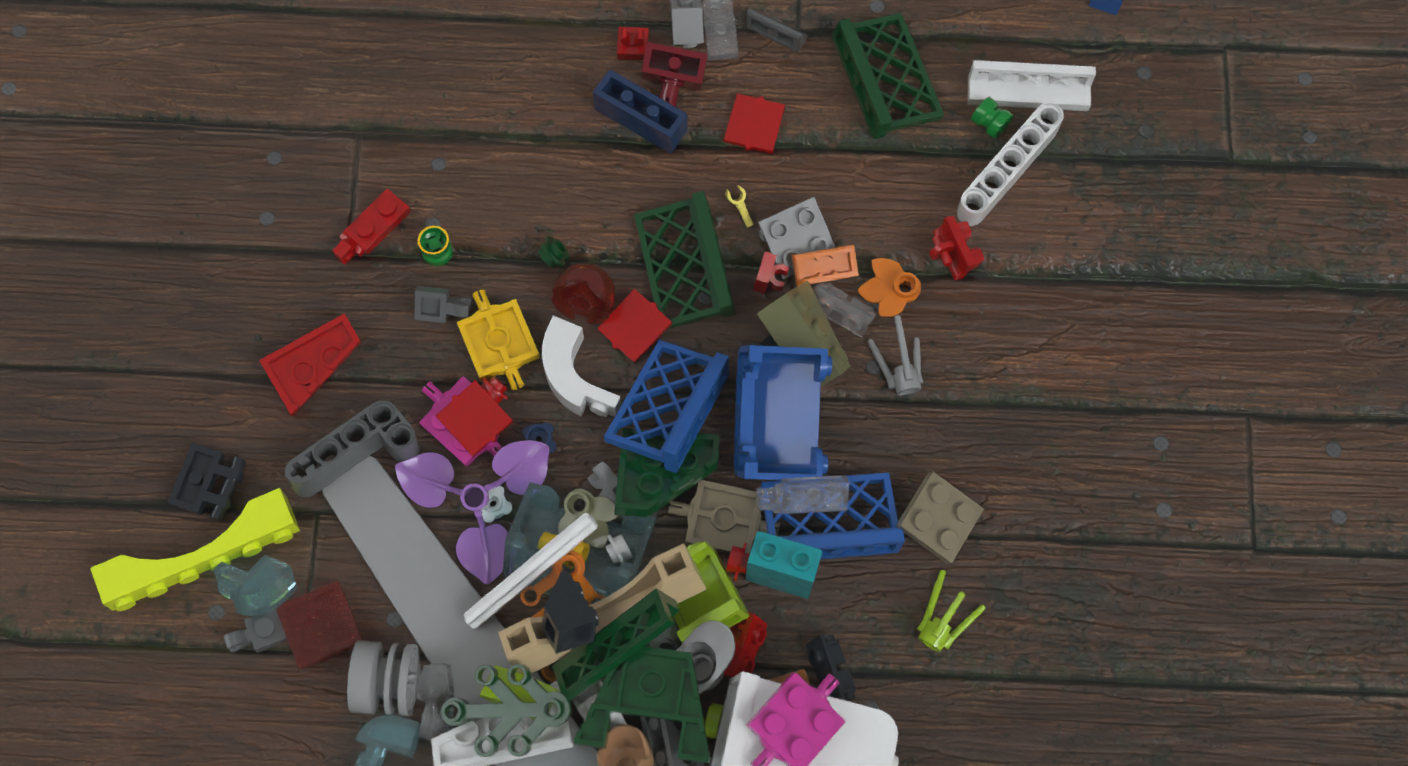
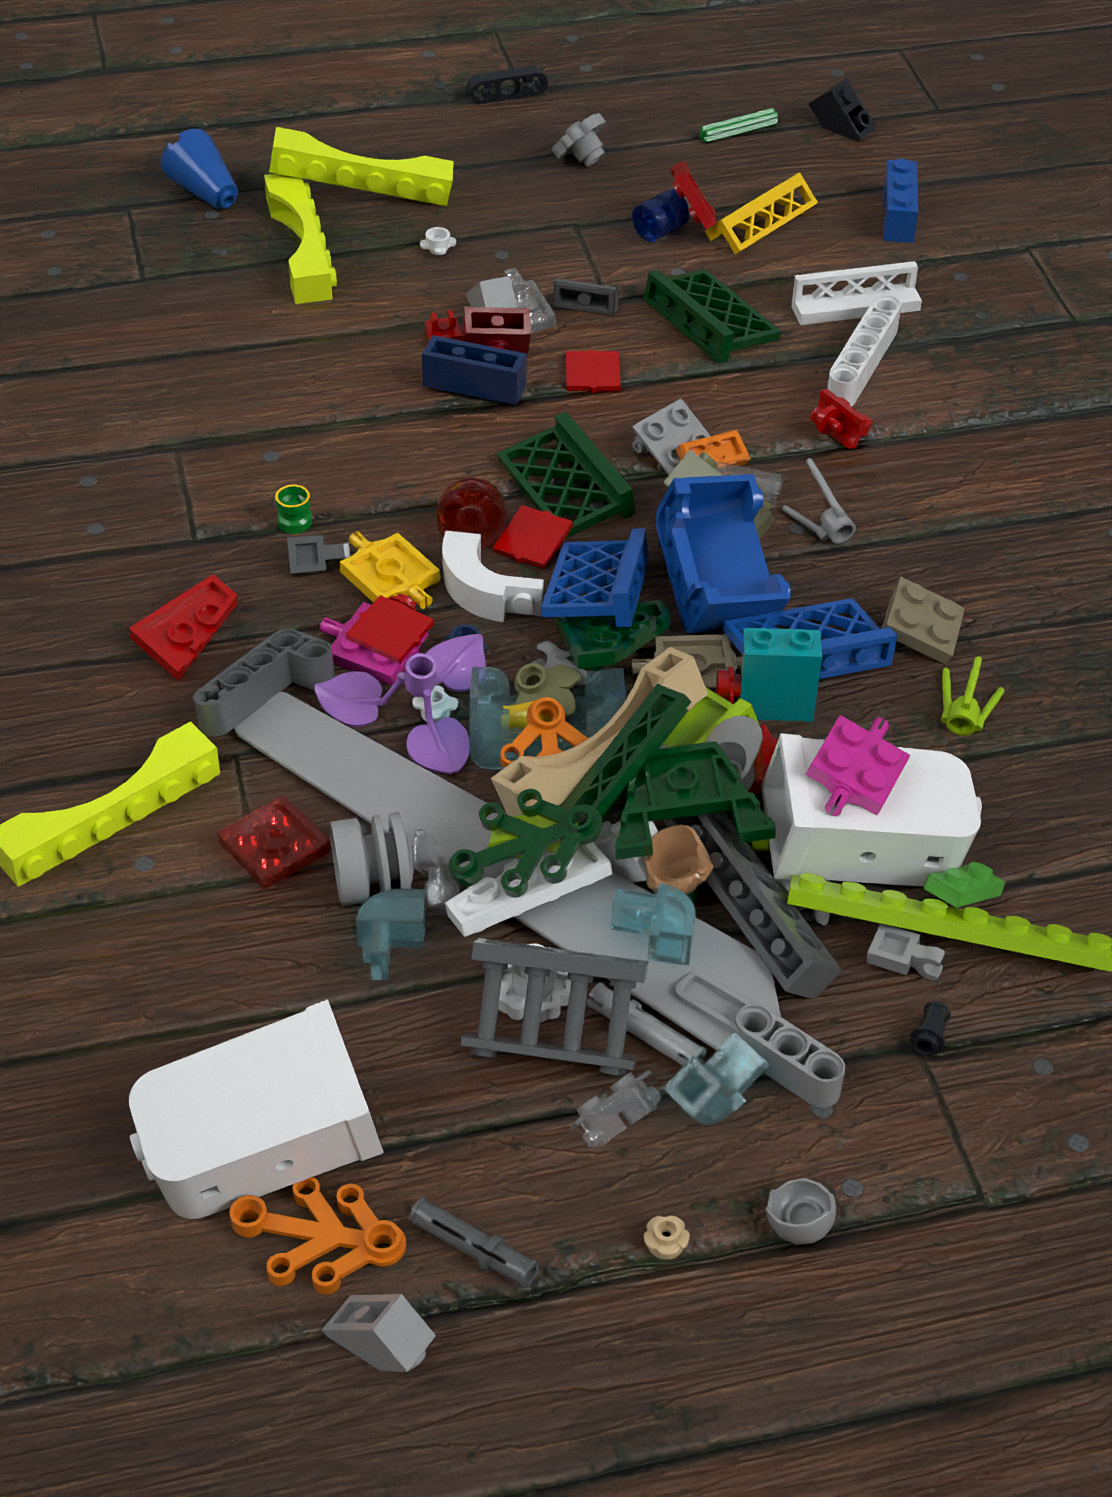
camera: 15 degrees left, 25 degrees down
(197, 479) = (87, 744): black plate -> none
(259, 589) = (189, 816): clear light blue brick -> none
(262, 631) = (203, 864): dark grey plate -> none
(371, 226) = (216, 511): red hinge -> none
(530, 570) = (505, 724): white axle -> none
(553, 252) = (424, 492): dark green plate -> none
(567, 616) = (569, 738): black slope -> none
(618, 549) = (588, 700): white plate -> none
(740, 204) = (594, 426): light yellow hand -> none
(766, 274) = (657, 468): red tile -> none
(805, 495) = (780, 611): clear hinge -> none
(885, 287) = (788, 460): orange plate -> none
(991, 117) = (830, 322): green wheel -> none

